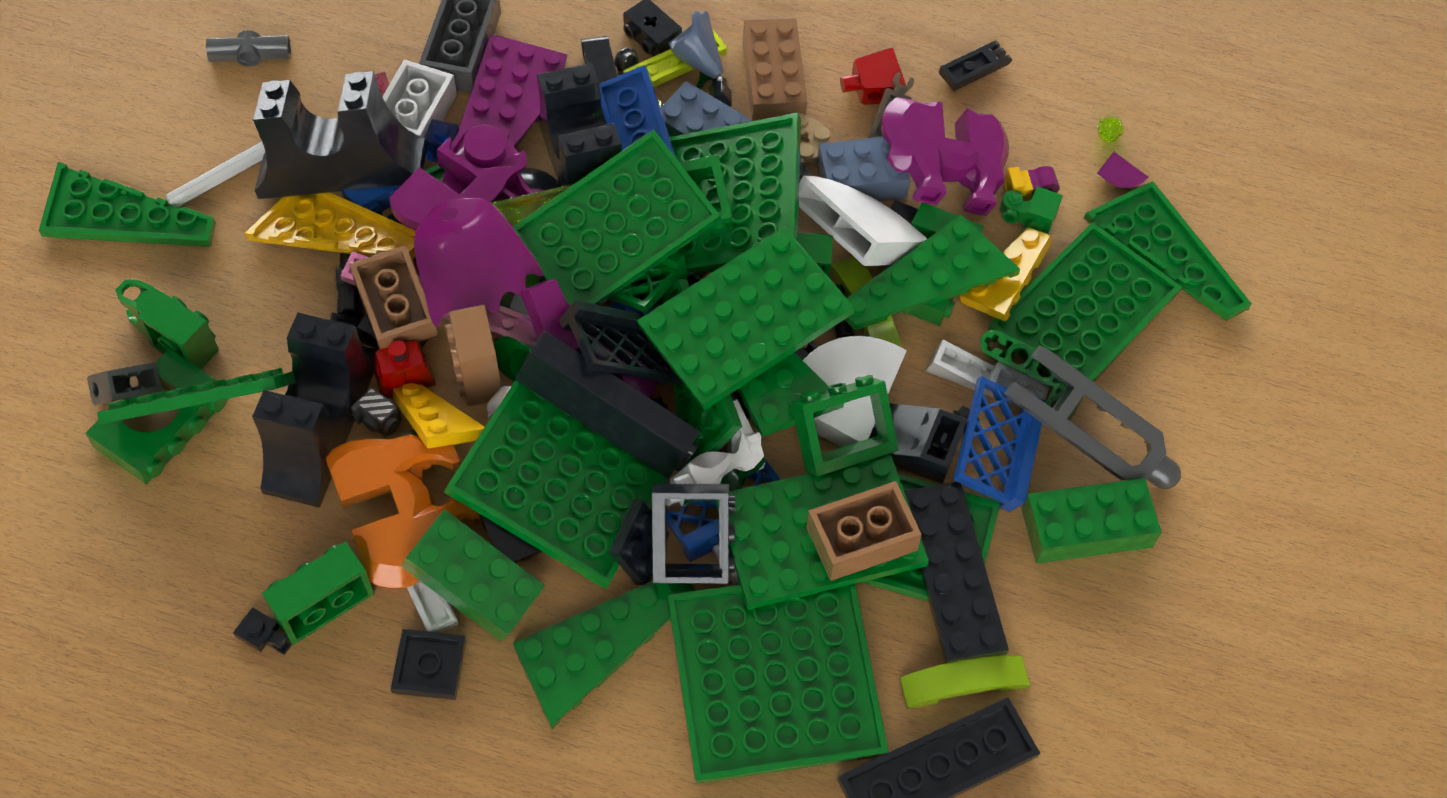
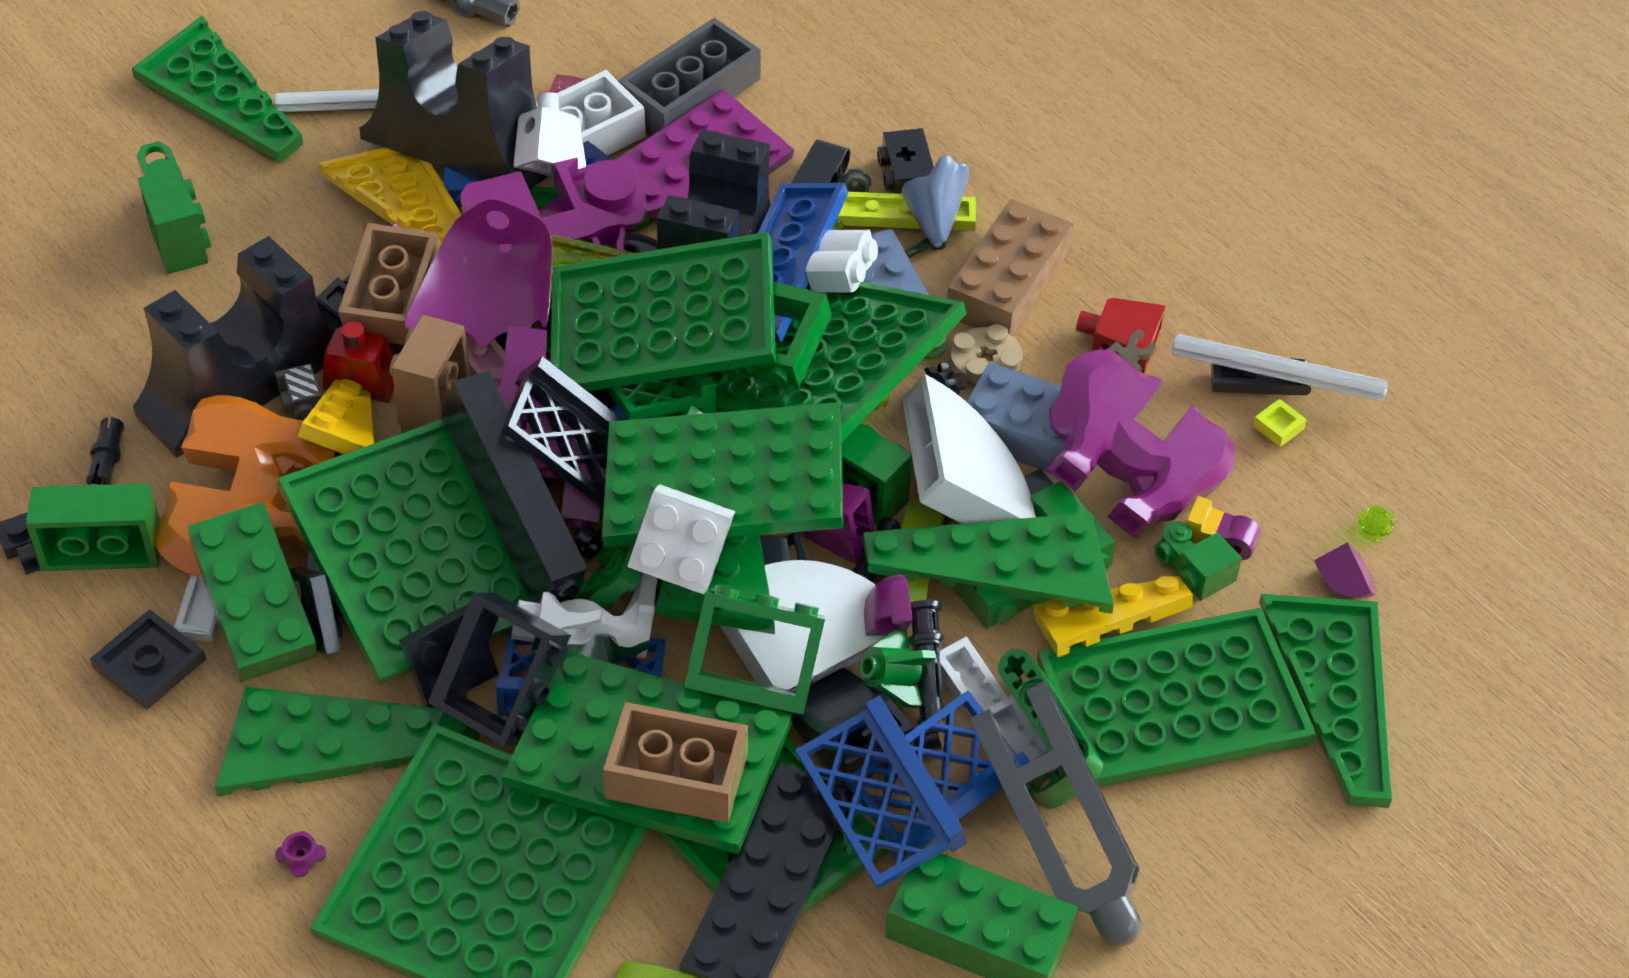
camera: 35 degrees right, 10 degrees down
(116, 385) = (81, 237): dark grey torso -> none
(148, 452) = (64, 318): green arch -> none
(196, 395) = (127, 274): green plate -> none
(269, 534) = (105, 452): none -> black pin
(416, 132) = (547, 137): none -> white torso
(527, 557) = (318, 609): none -> black wing
(638, 726) = (298, 843): none -> magenta plate
(683, 122) = (841, 260): none -> white brick
(720, 90) = (930, 264): black piece -> none
(763, 378) = (681, 539): none -> white brick
(891, 346) = (888, 607): none -> magenta brick
(923, 386) = (895, 668): none -> green brick
(927, 358) = (927, 637): none -> black pin
(987, 54) = (1280, 367): none -> white axle
(999, 451) = (915, 781): none -> blue fence
(1010, 91) = (1279, 422): none -> neon yellow plate

